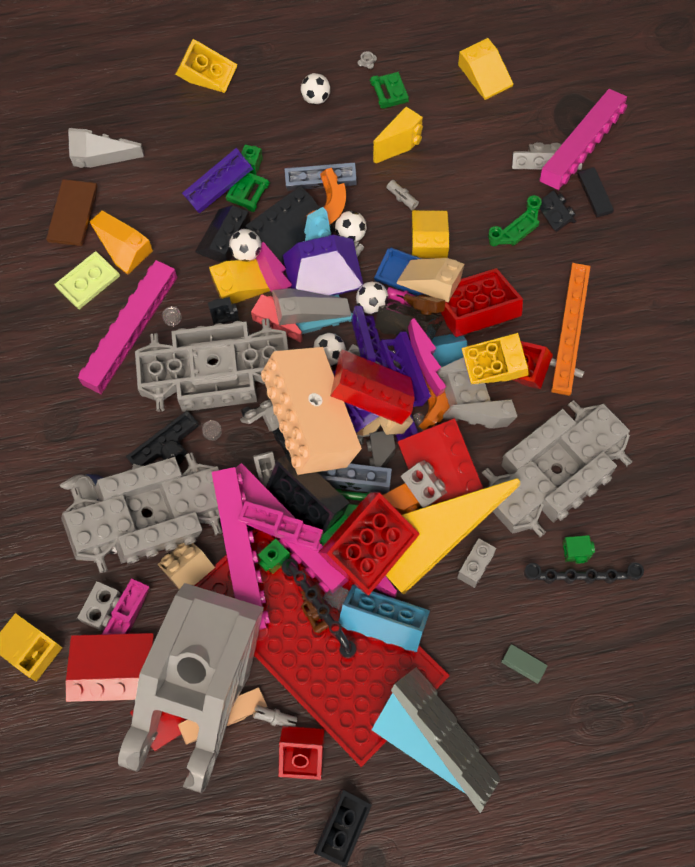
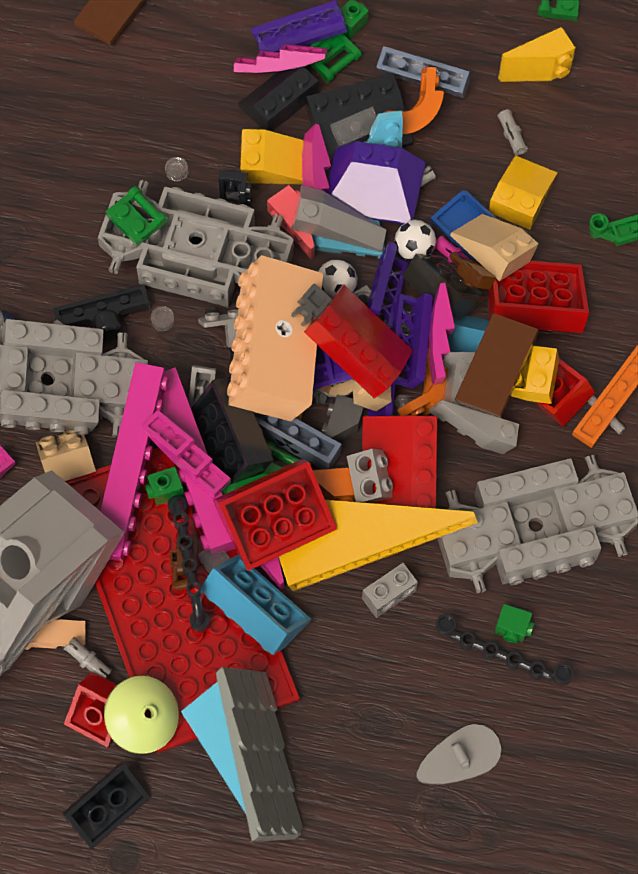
camera: 20 degrees right, 0 degrees up
(87, 280) = (99, 88): yellowish green tile -> none
(121, 241) = (158, 59): light orange wedge -> none
(127, 327) = (121, 161): dark pink brick -> none
(159, 367) = (131, 221): none -> green plate
(219, 203) = (288, 57): none -> slope
(245, 245) = (295, 119): white piece -> none
(290, 233) = (353, 126): none -> clear panel
(327, 744) = (127, 719): none -> yellowish green dish
(328, 372) = (311, 303): none -> dark grey plate
(351, 225) = (431, 145): white piece -> none
(481, 363) = (496, 365): none -> reddish brown tile
(524, 664) = (390, 722): sand green slope -> none
(587, 665) = (461, 756): none -> light grey shield

